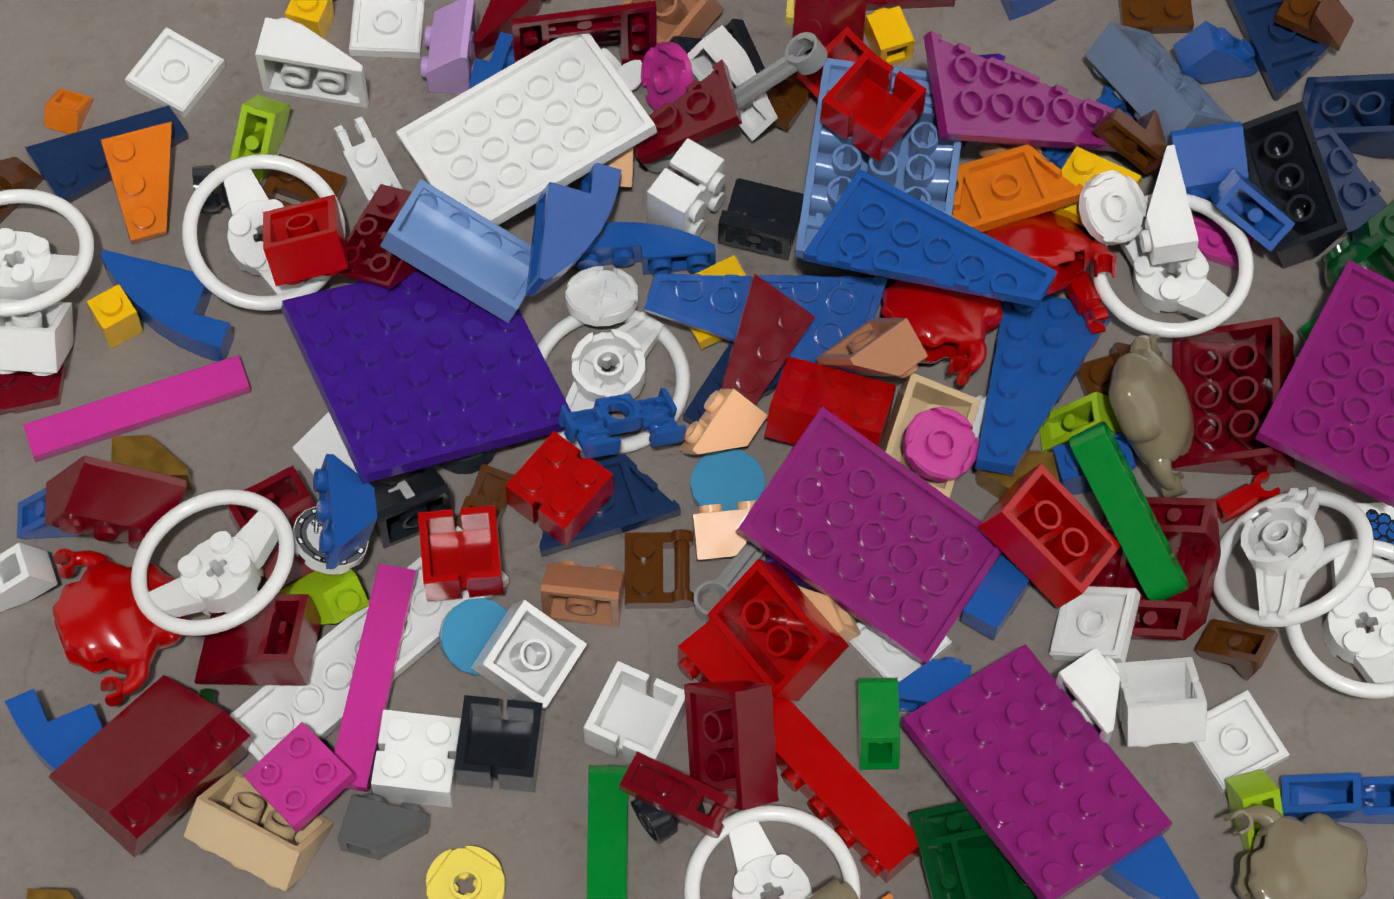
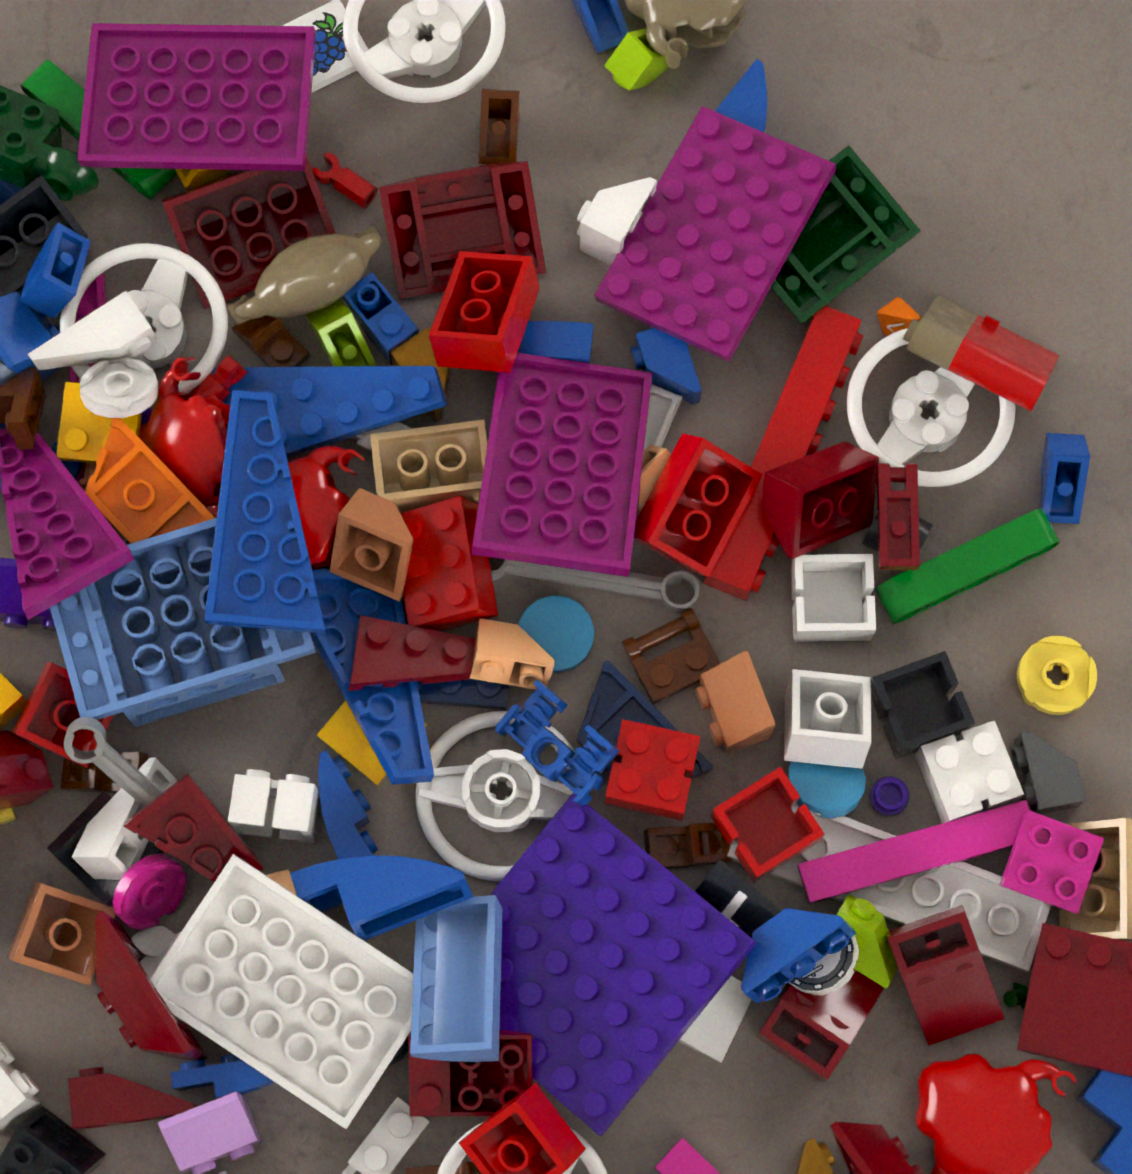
camera: 115 degrees left, 10 degrees up
(220, 571) = (928, 1056): white piece -> none
(437, 688) = (889, 796): none -> dark purple plate
(601, 296) = (421, 833): white tile -> none
(715, 530) = (609, 605): light nougat slope -> none
(761, 218) = (258, 731): black bracket -> none
(866, 108) = (131, 634): red piece -> none
(878, 724) = (733, 385): green slope -> none
(940, 444) = (438, 445): dark pink tile -> none
(1096, 619) = (550, 243): white tile -> none
(1128, 512) = (426, 255): green beam -> none
(1161, 702) = (589, 165): white piece -> none
(1238, 741) = (582, 104): white tile -> none
(1284, 547) = (423, 103): white piece -> none

